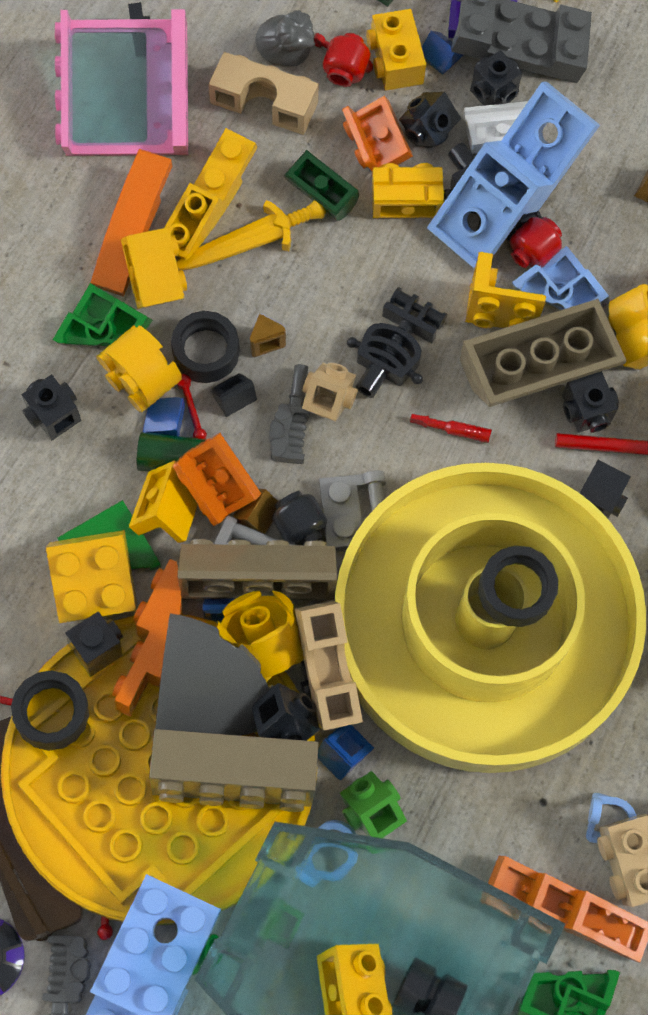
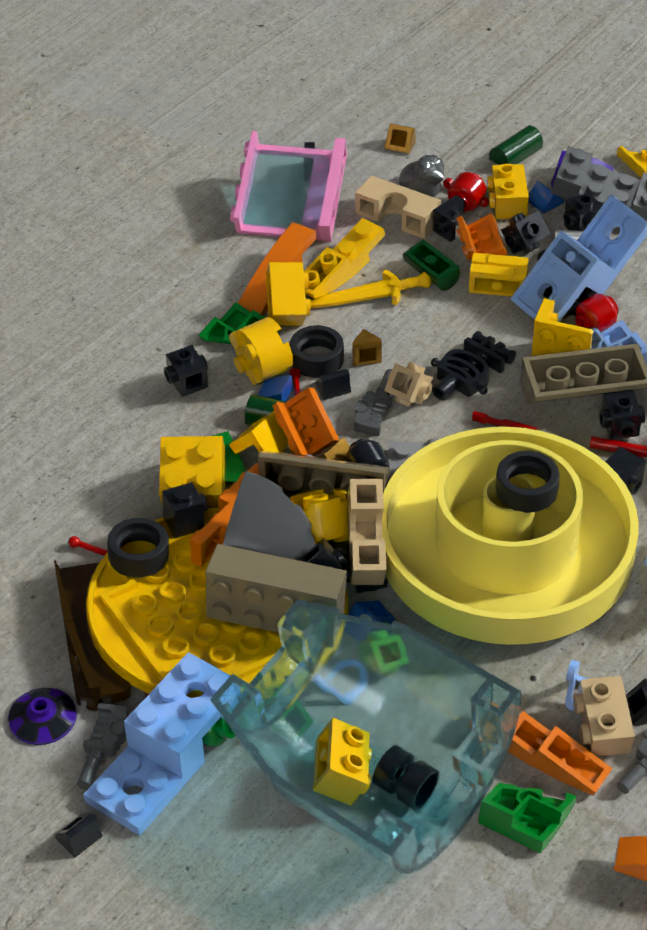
camera: 15 degrees right, 25 degrees down
(328, 104) = (446, 217): none -> black bracket

